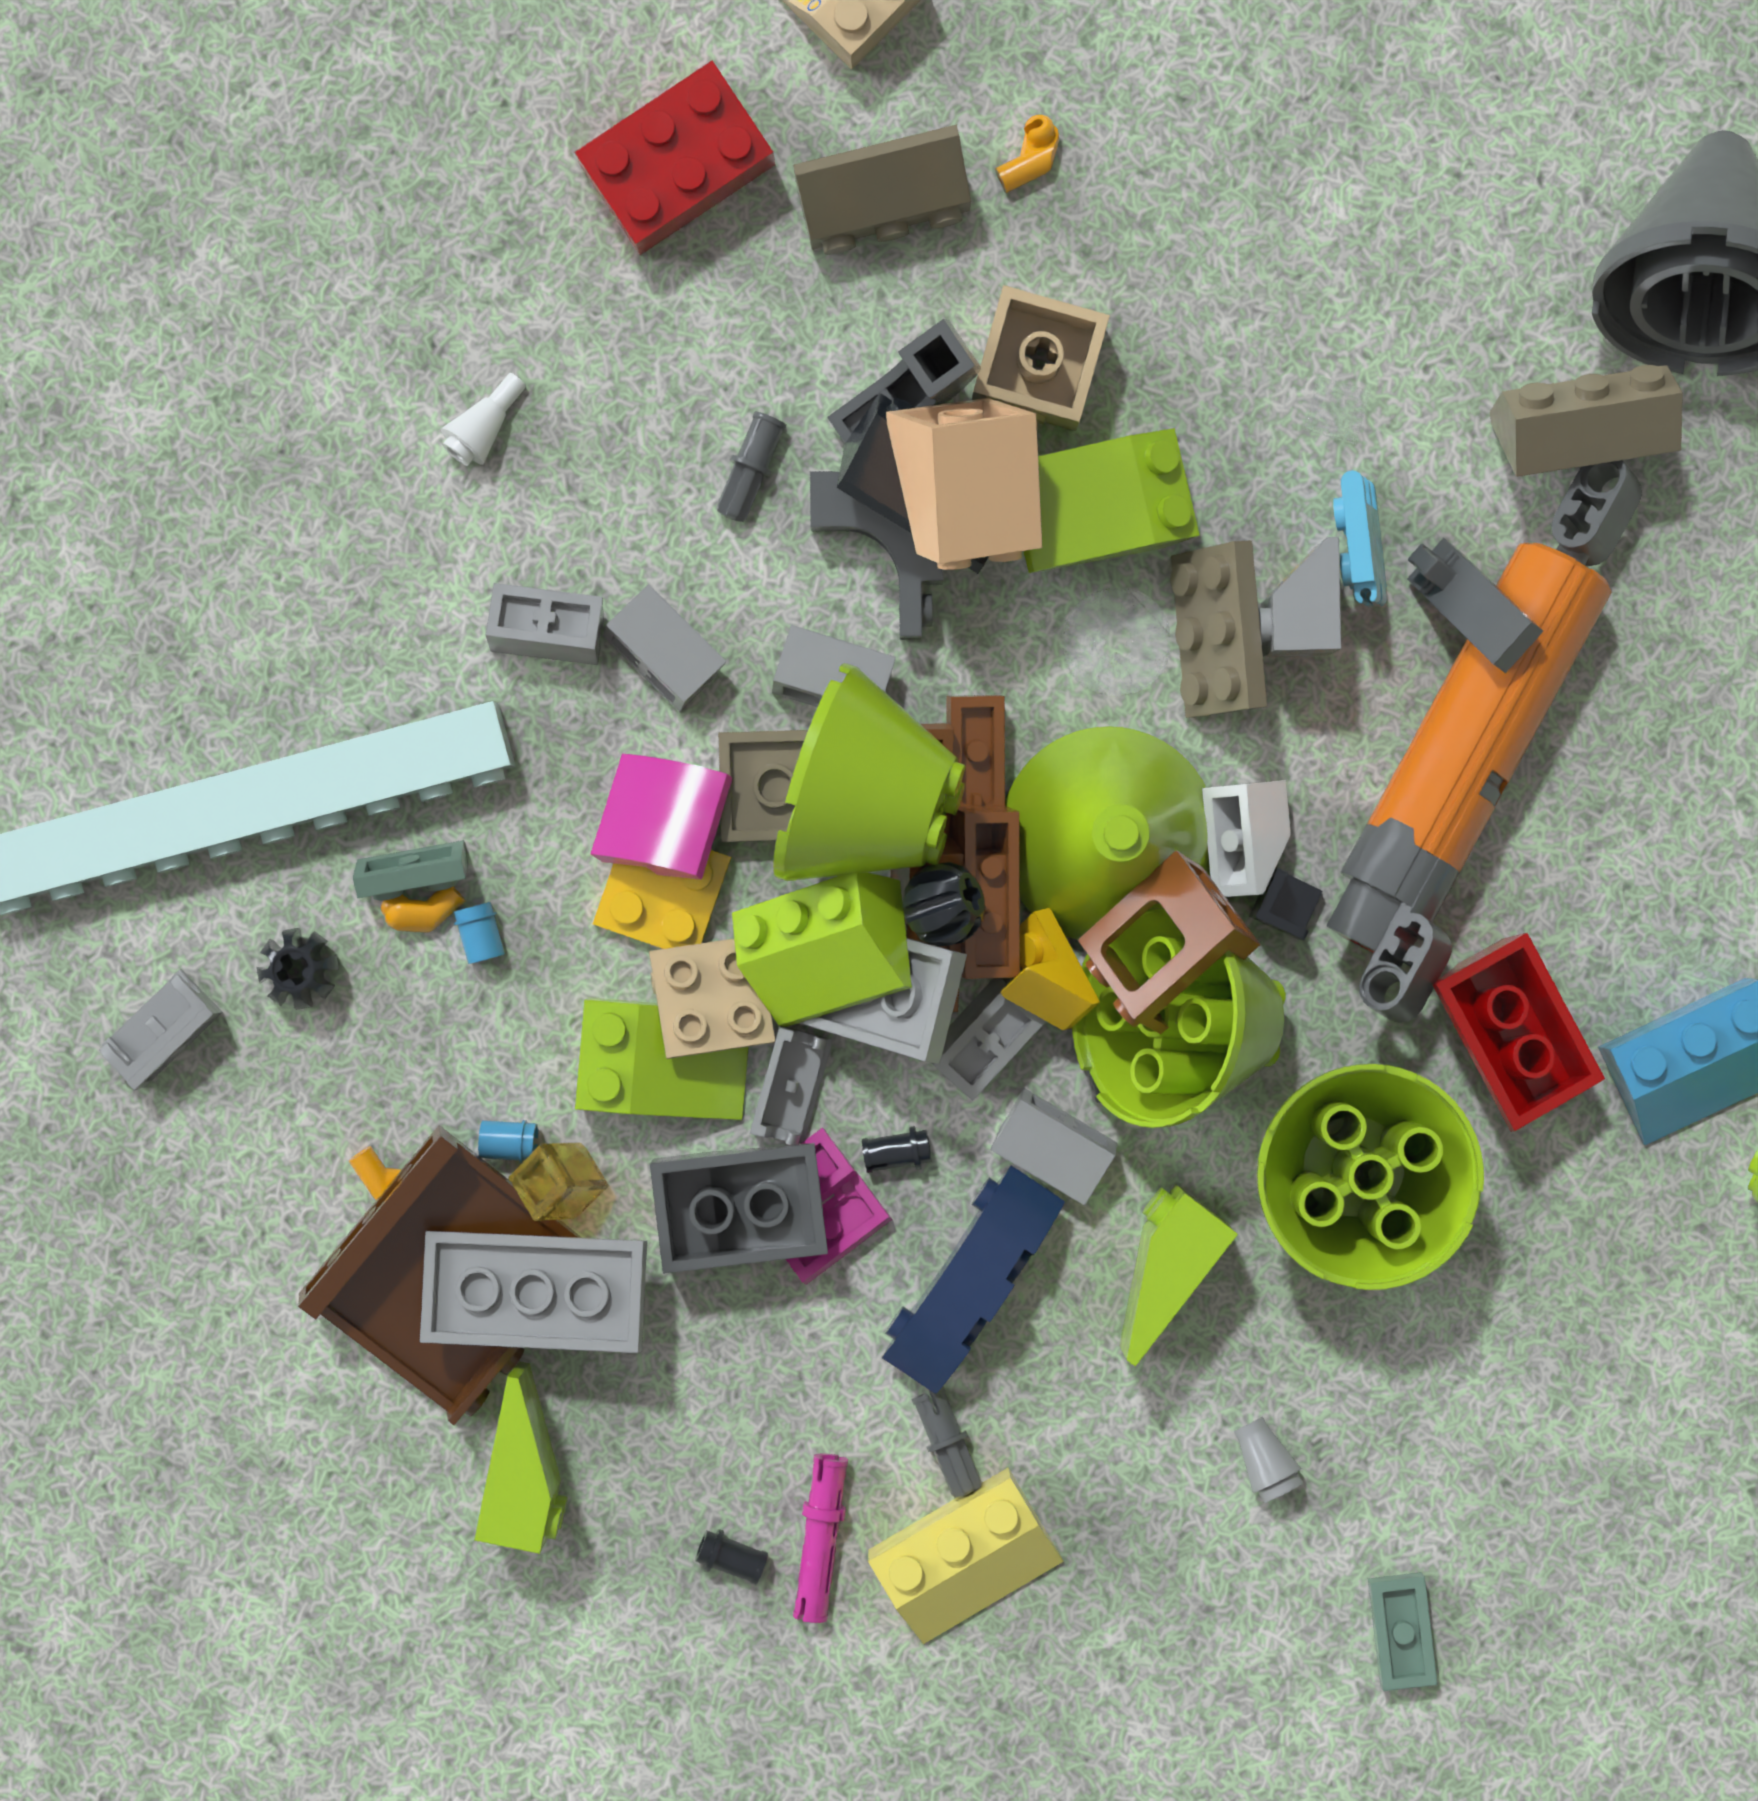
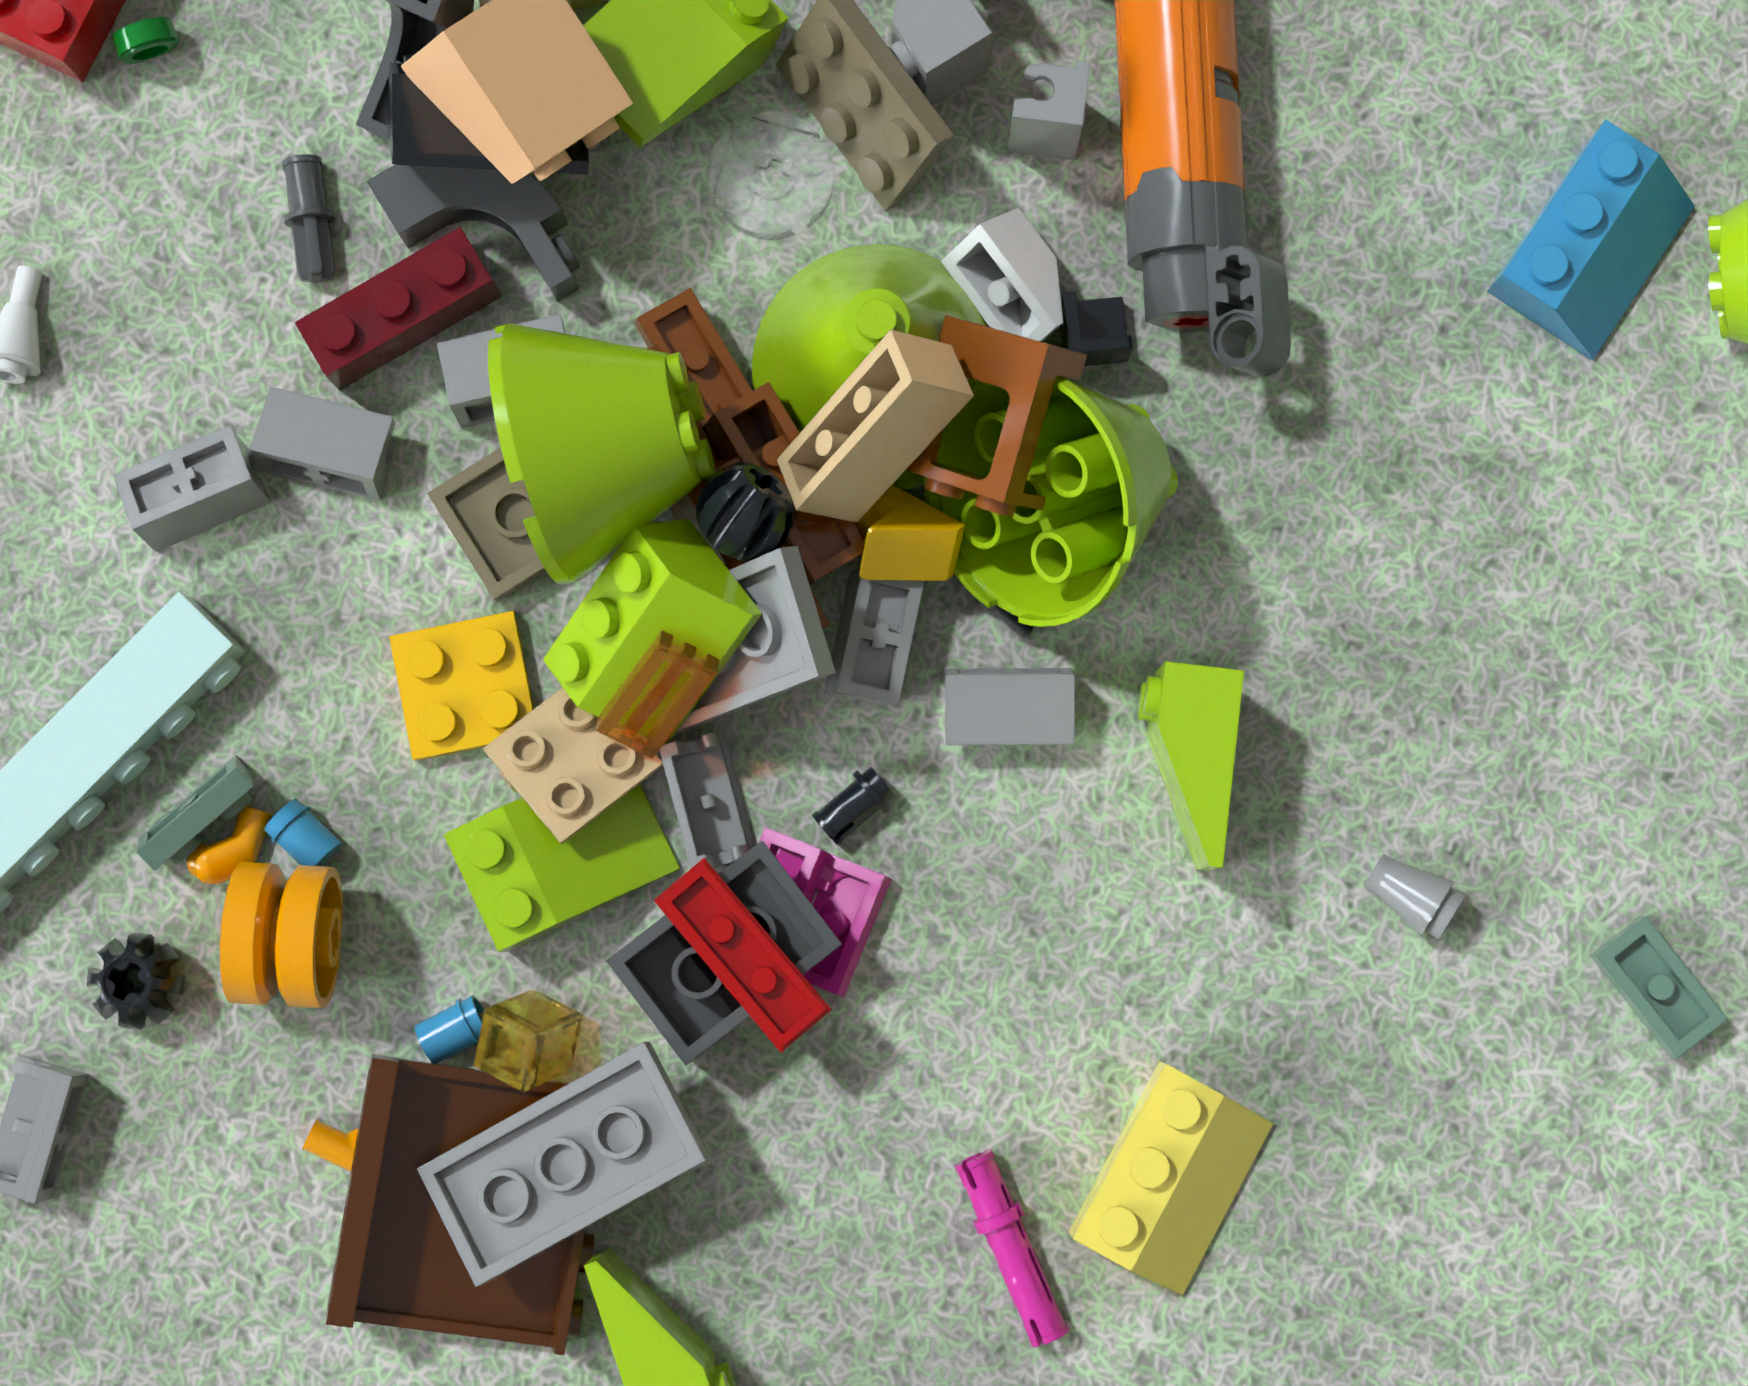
camera: 20 degrees left, 5 degrees down
(431, 1006) = (281, 935): none -> light orange wheel
(661, 816) = (417, 607): dark pink slope -> none
(706, 255) = (145, 40): none -> green tile
(730, 1557) = (931, 1323): black pin -> none
(751, 1220) = (742, 955): none -> red tile
(777, 580) = (398, 309): none -> dark red brick
(793, 988) = (679, 660): none -> clear orange tile
(948, 1443) = (1082, 1071): dark grey axle -> none
(973, 1280) = (1007, 887): dark blue brick -> none
(1074, 903) = (874, 426): none -> tan brick
(1355, 729) = (1055, 124): none -> light grey hinge
(1414, 1190) = (1383, 497): lime cone -> none
(1518, 1030) = (1400, 308): red slope -> none

